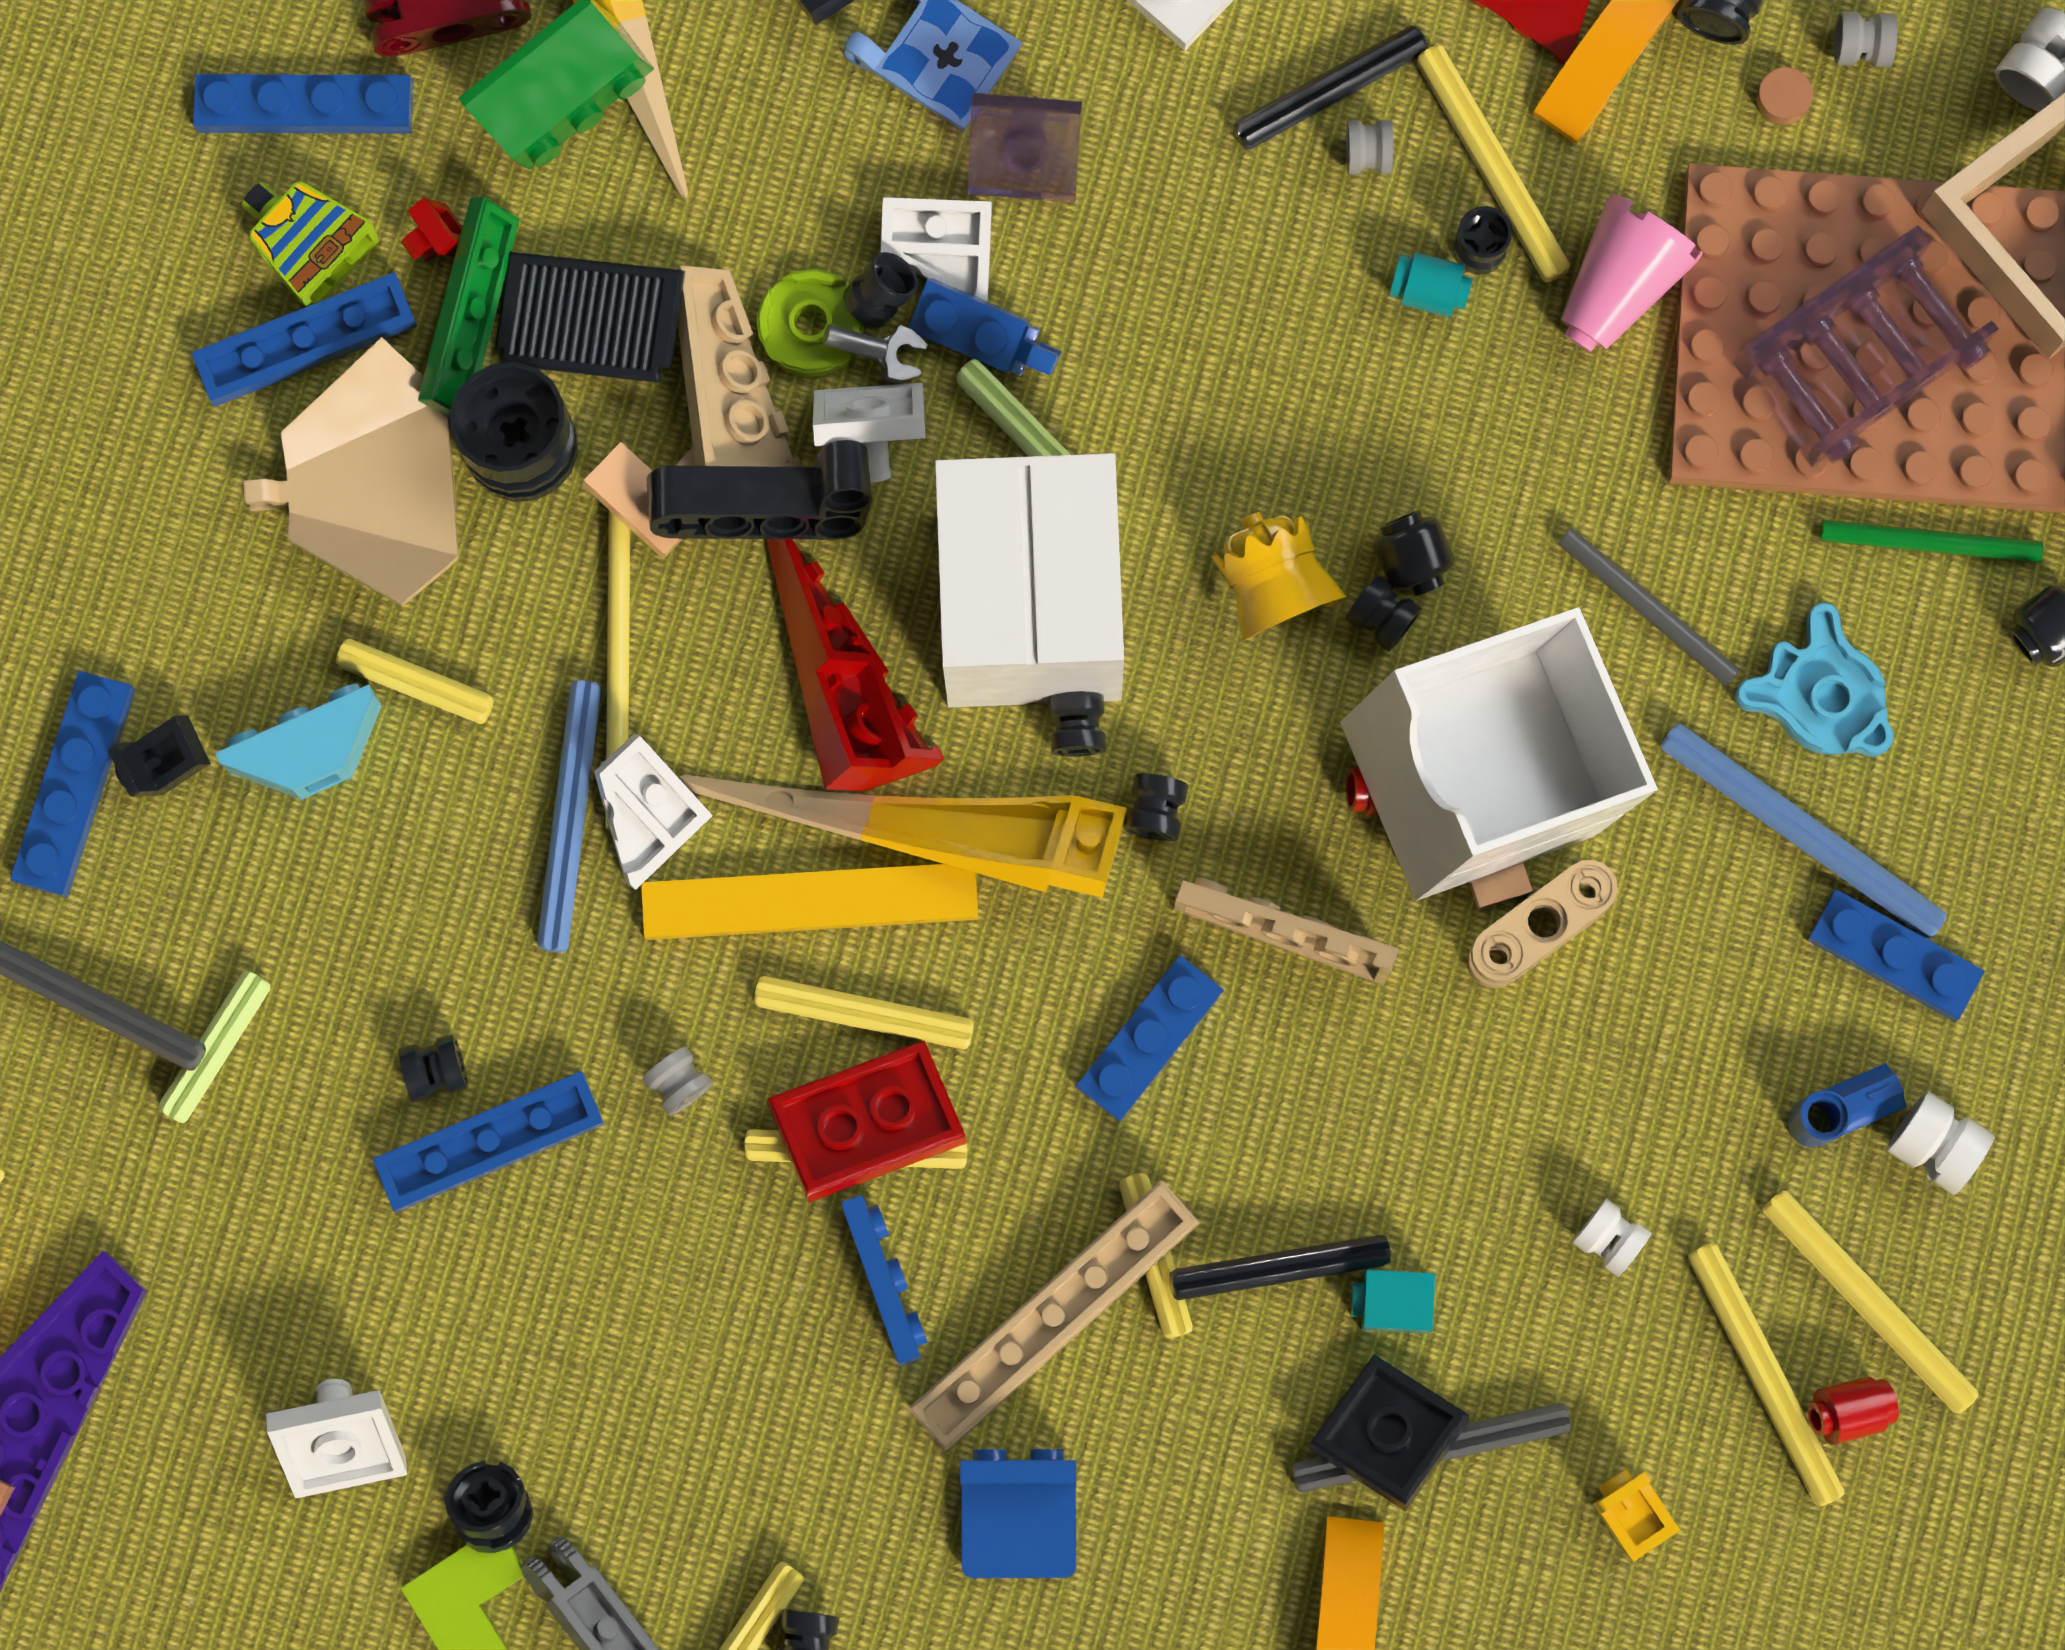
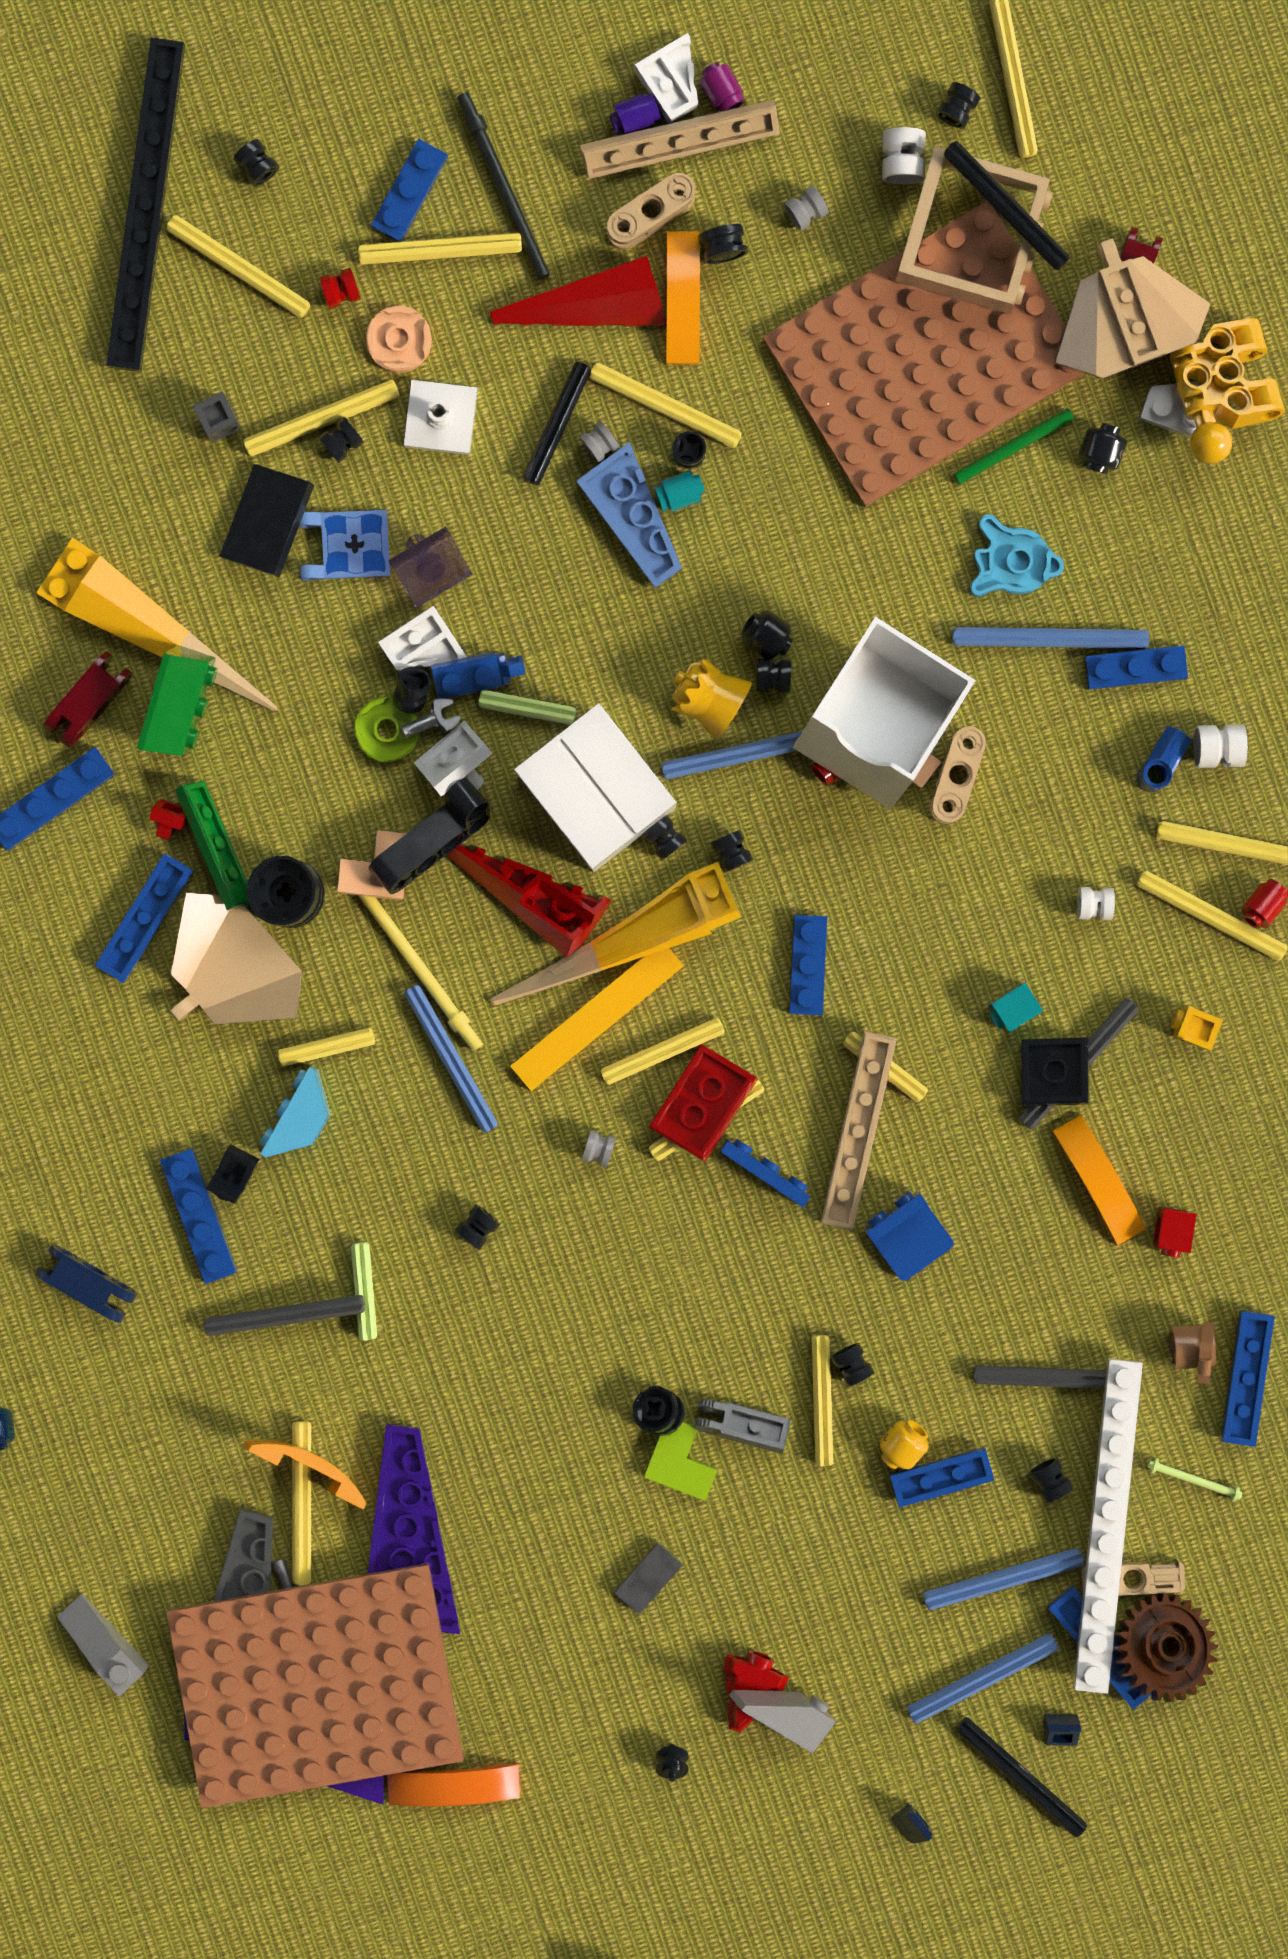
camera: 40 degrees left, 10 degrees up
(307, 239) = (107, 867): torso -> none
(336, 1441) = (564, 1432): white tile -> none
(488, 1141) = (529, 1241): blue plate -> none
(589, 316) = (277, 806): black window -> none
(646, 809) = (487, 1030): white wing -> none
(723, 379) = (368, 790): tan wing -> none
(1243, 679) = (730, 756): none -> medium blue axle
(1280, 1267) = (948, 1030): black axle -> none
(1296, 934) = (849, 862): tan wing -> none
(1346, 260) = (627, 507): none -> medium blue wing
(1624, 273) = (771, 419): bright pink cone -> none
(1649, 607) = (899, 578): dark grey bar -> none
(1784, 96) = (785, 265): nougat tile -> none
(1859, 294) = (896, 349): fence -> none

